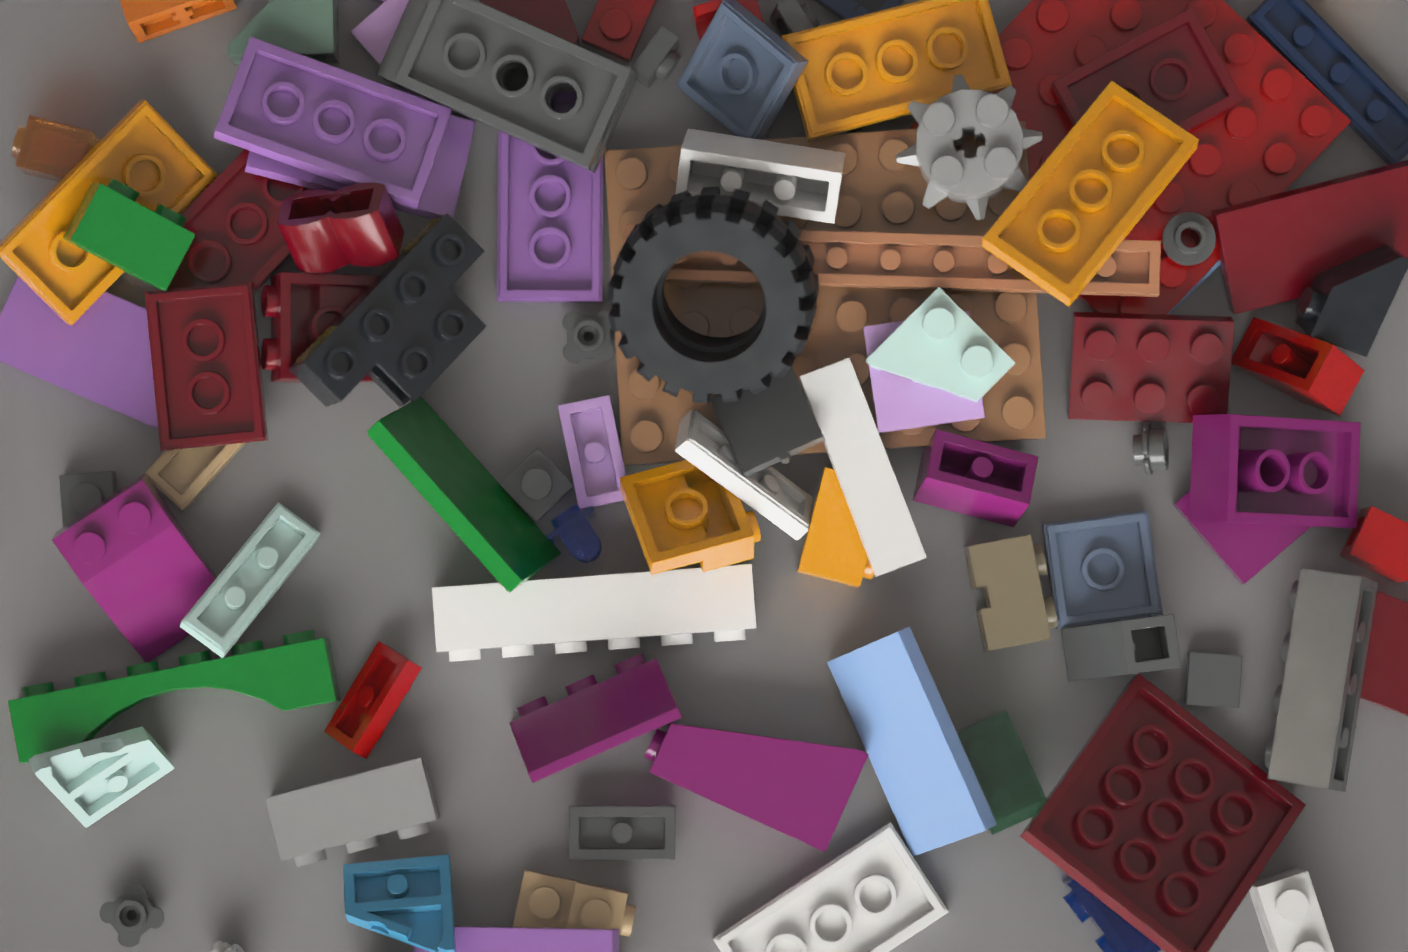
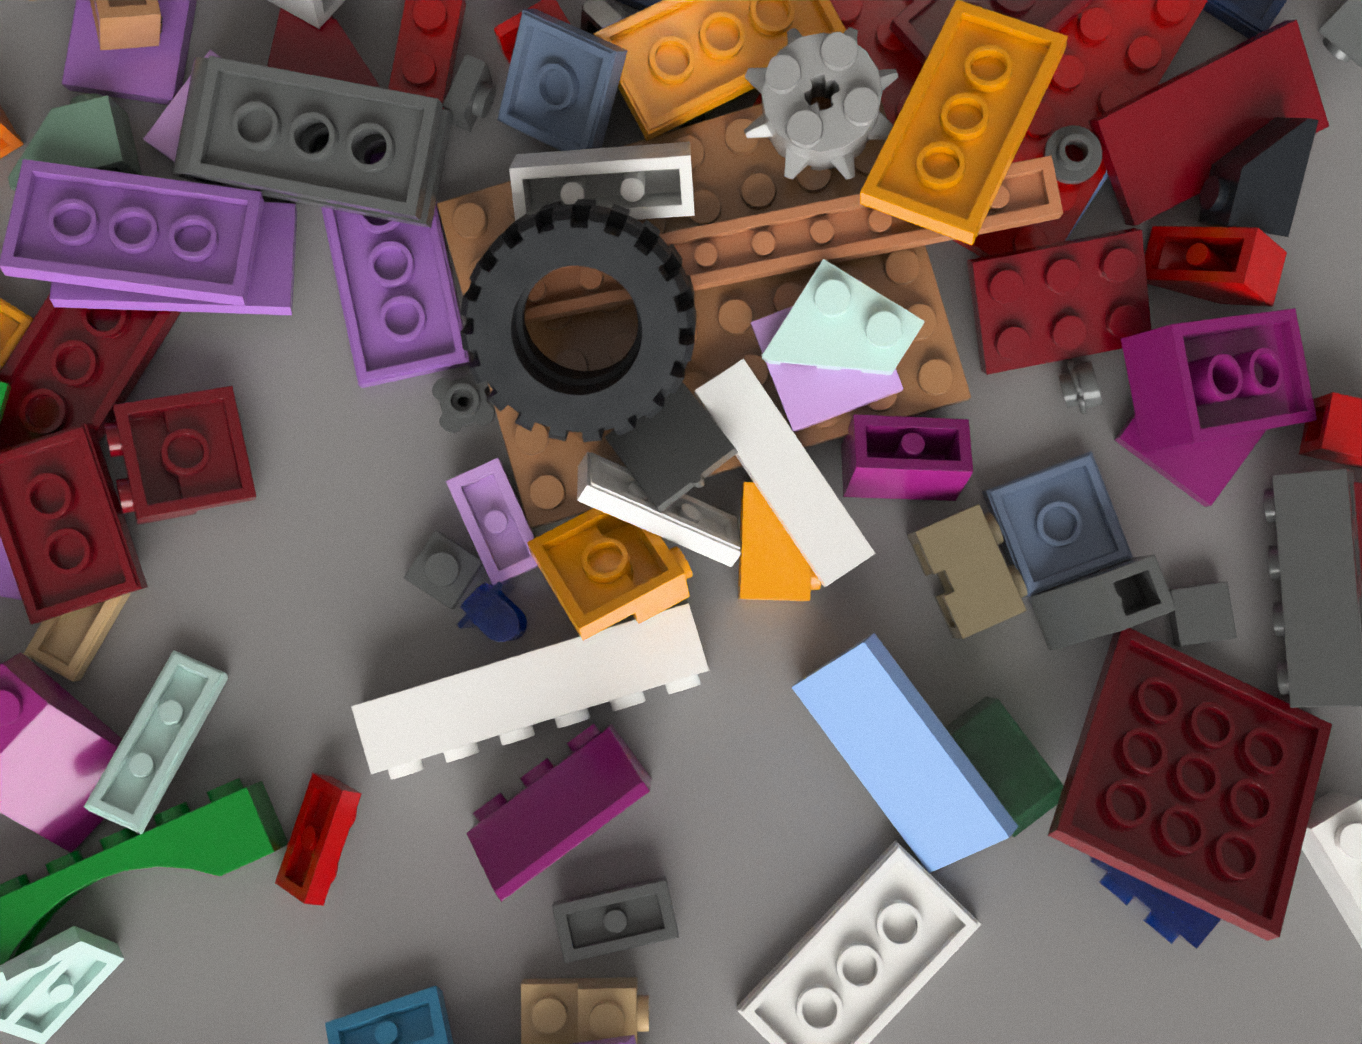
camera: 10 degrees left, 0 degrees up
(341, 227) = (166, 342): dark red brick -> none
(353, 811) = (322, 964): light grey brick -> none
(401, 325) = (255, 432): black piece -> none
(463, 493) = (362, 597): green tile -> none
(770, 779) = (756, 828): magenta slope -> none

